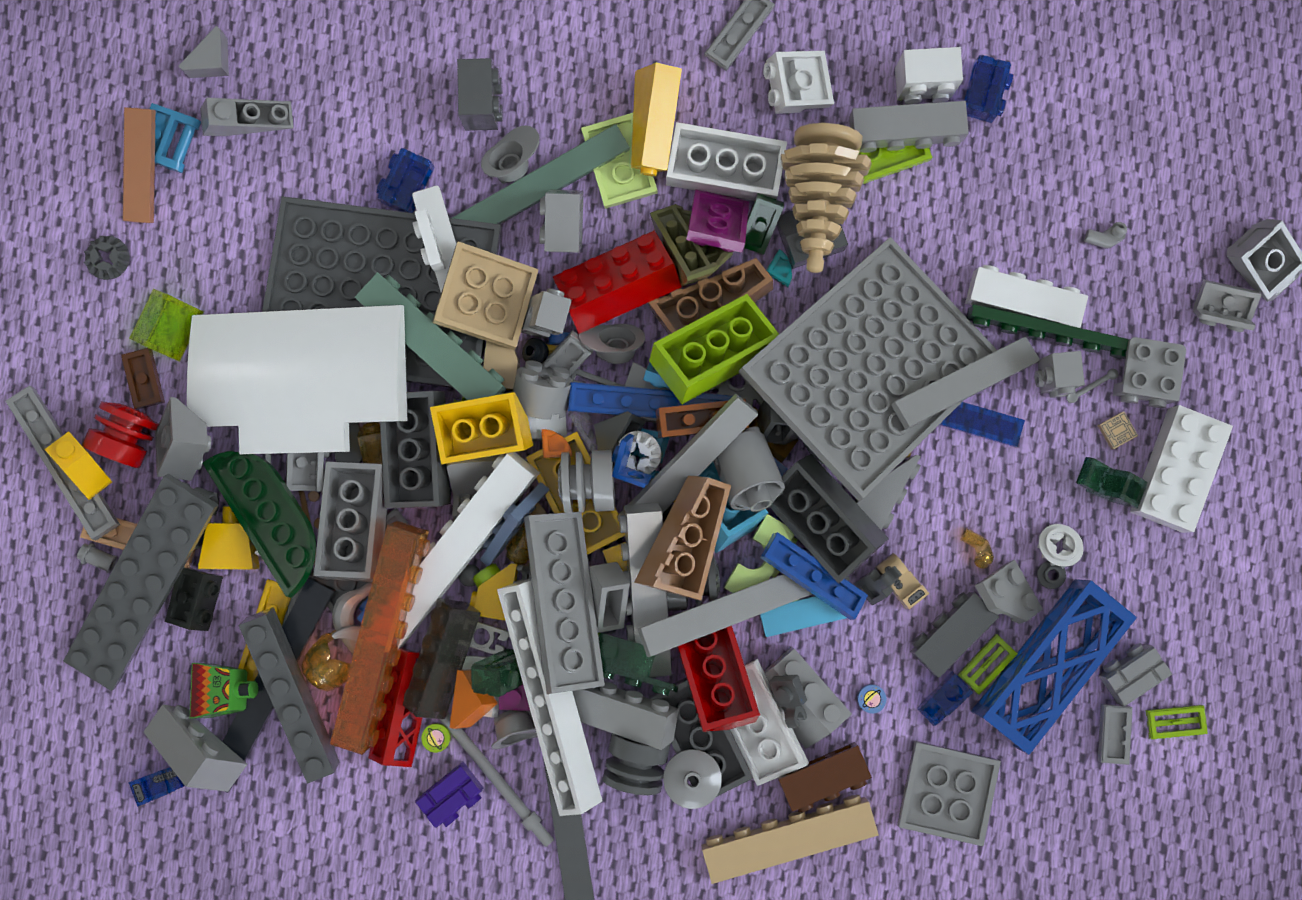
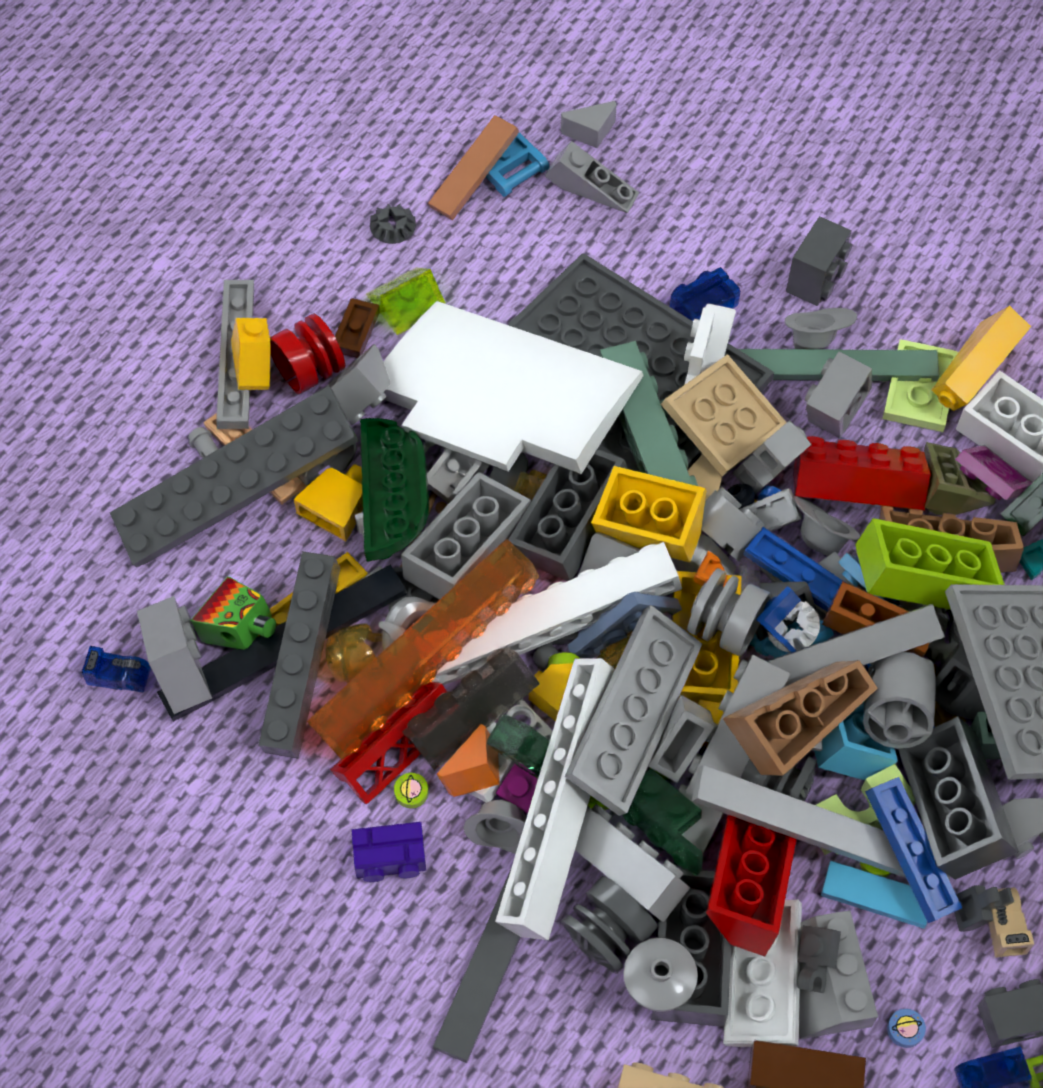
camera: 30 degrees right, 25 degrees down
(193, 600) = (268, 529): pearl dark grey bracket -> none
(530, 819) = (453, 928): light grey bar -> none

